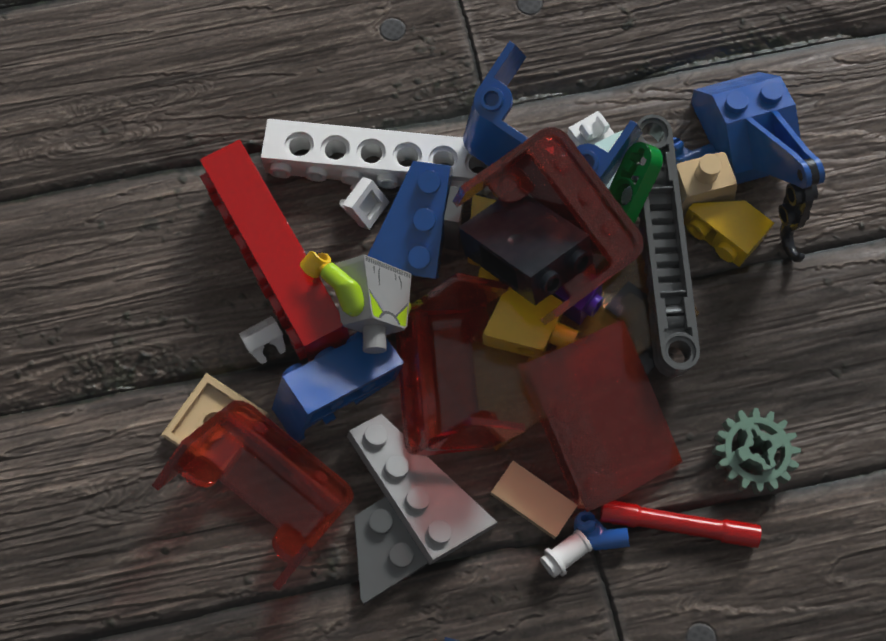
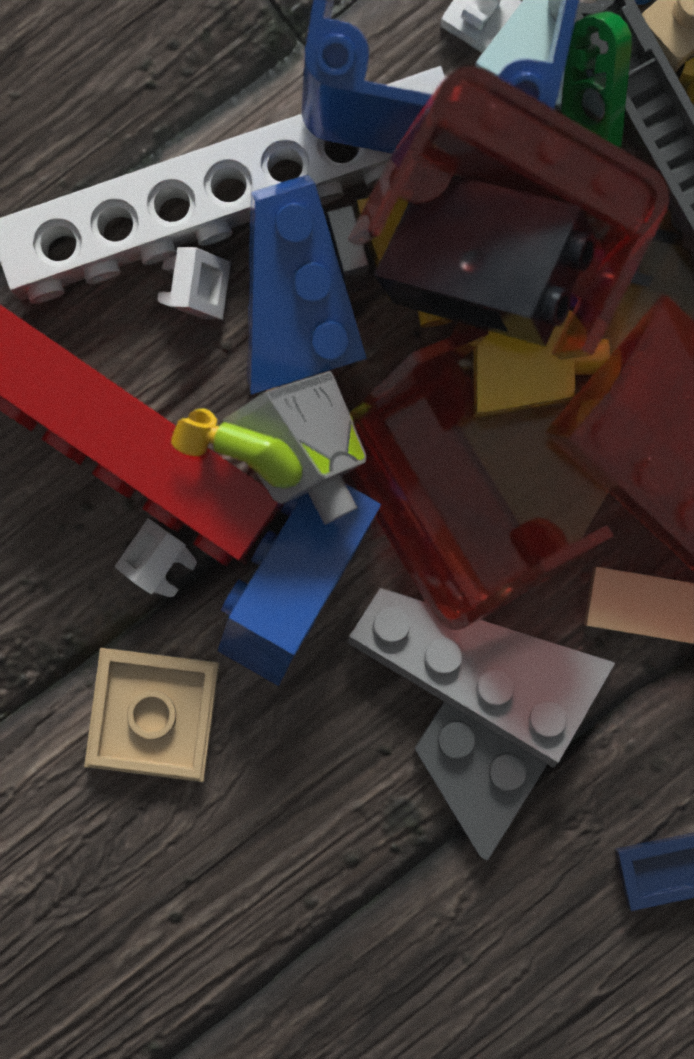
camera: 25 degrees left, 15 degrees up
(268, 474) = (280, 752): clear red windscreen -> none

